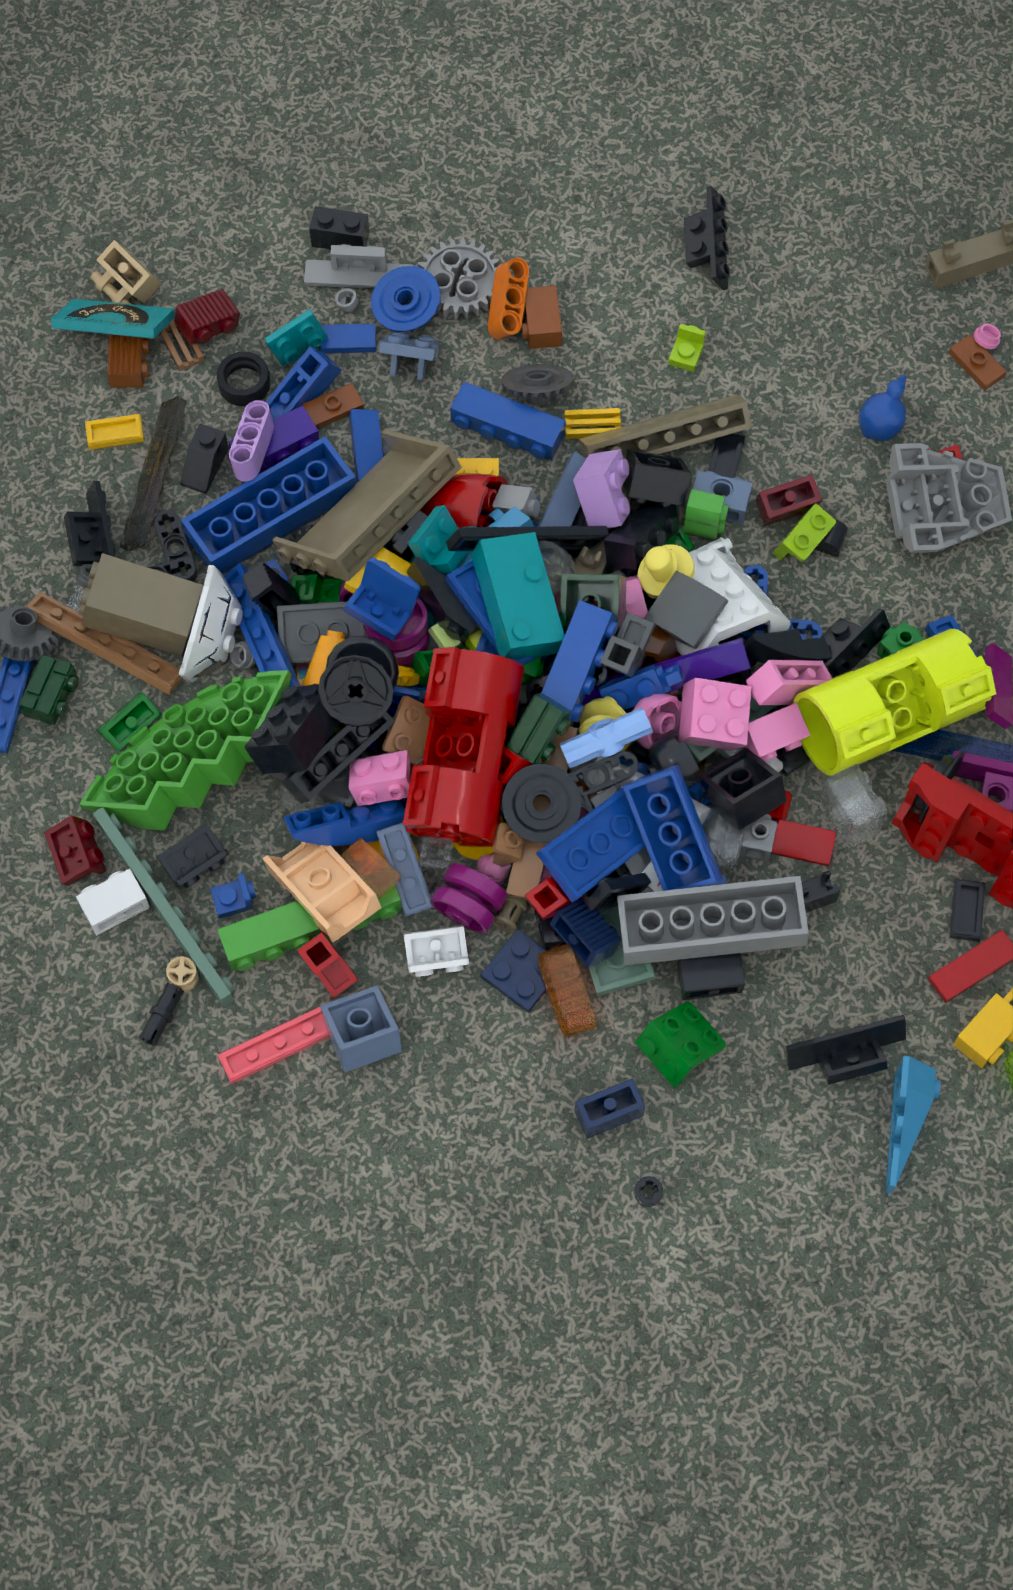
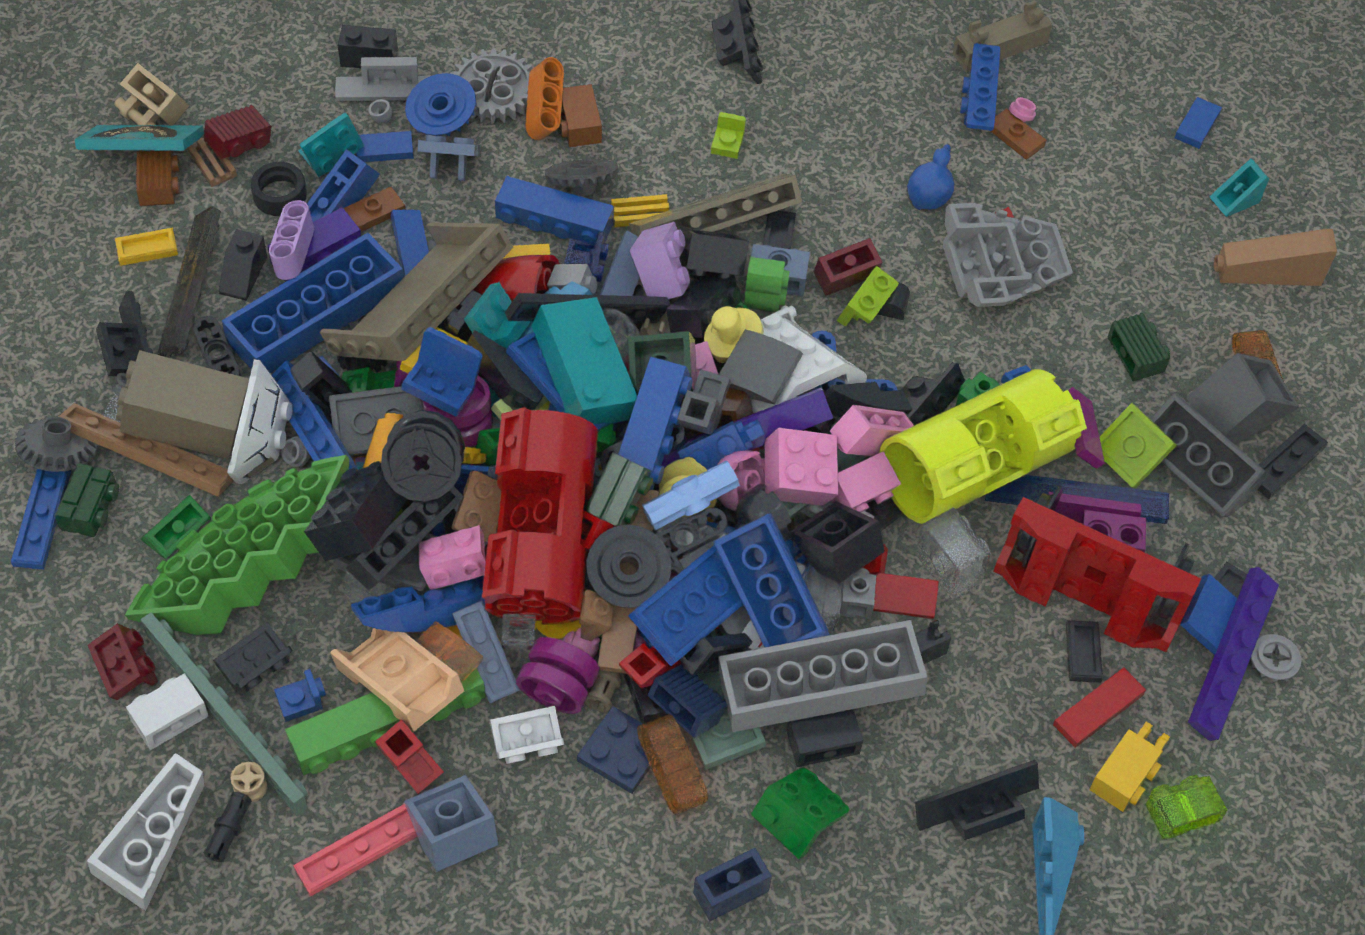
camera: 10 degrees left, 10 degrees down
(89, 1018) = (146, 836): none -> white wedge
(533, 471) = (589, 253): none -> clear blue bracket
(947, 312) = (981, 88): none -> blue bracket

